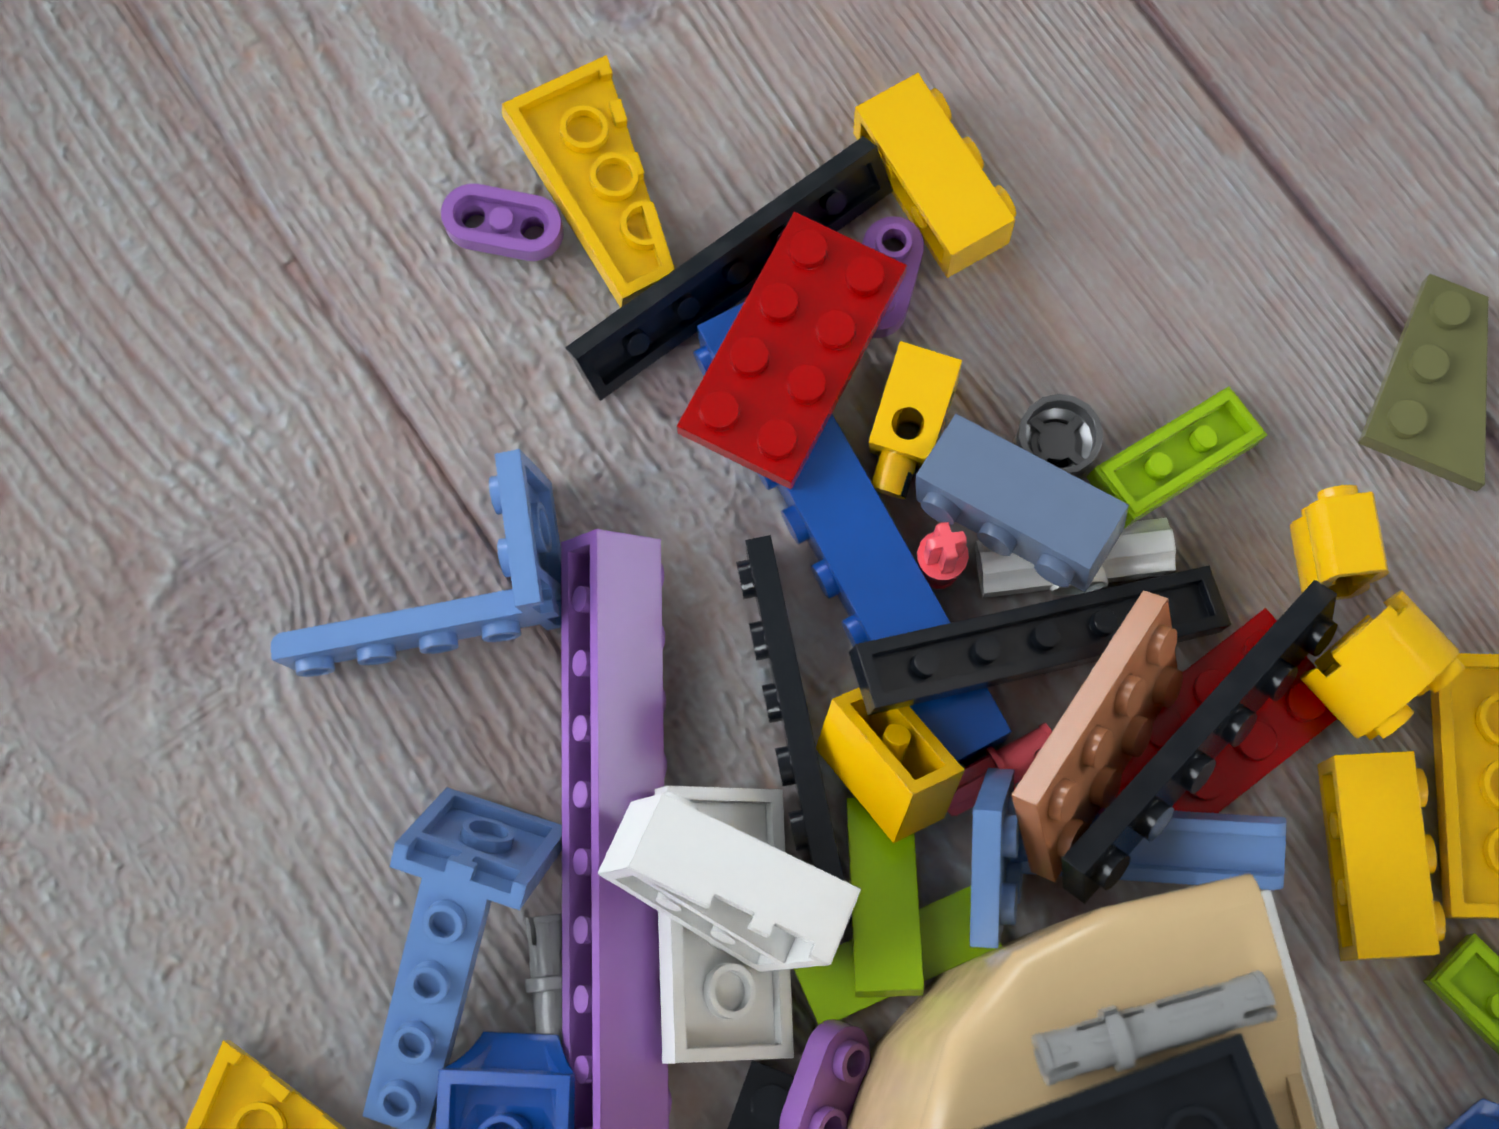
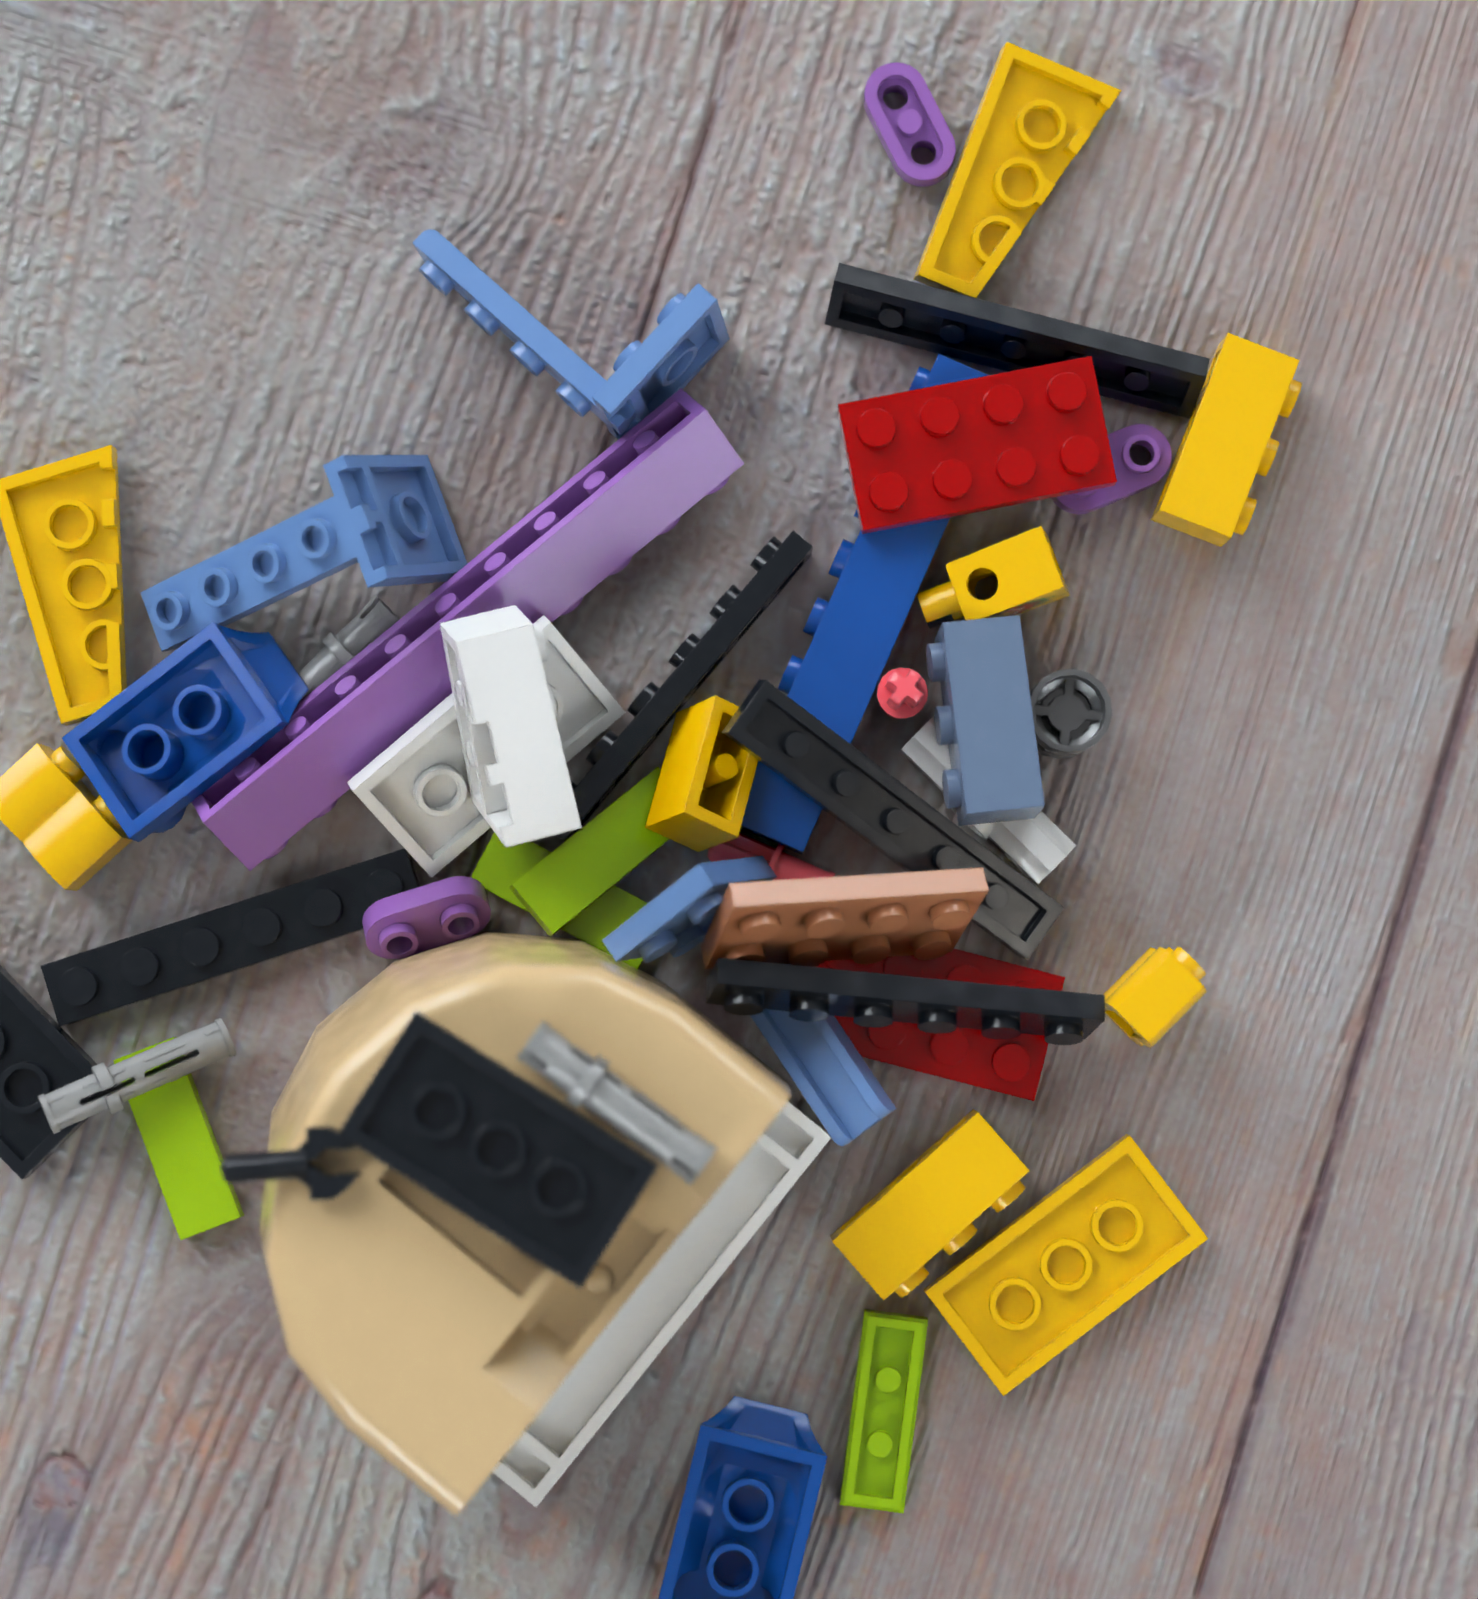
camera: 50 degrees right, 10 degrees up
(1178, 454) = (1134, 816): lime tile -> none
(1382, 667) = (1074, 1098): yellow brick -> none
(1437, 387) = (1364, 980): olive wing -> none

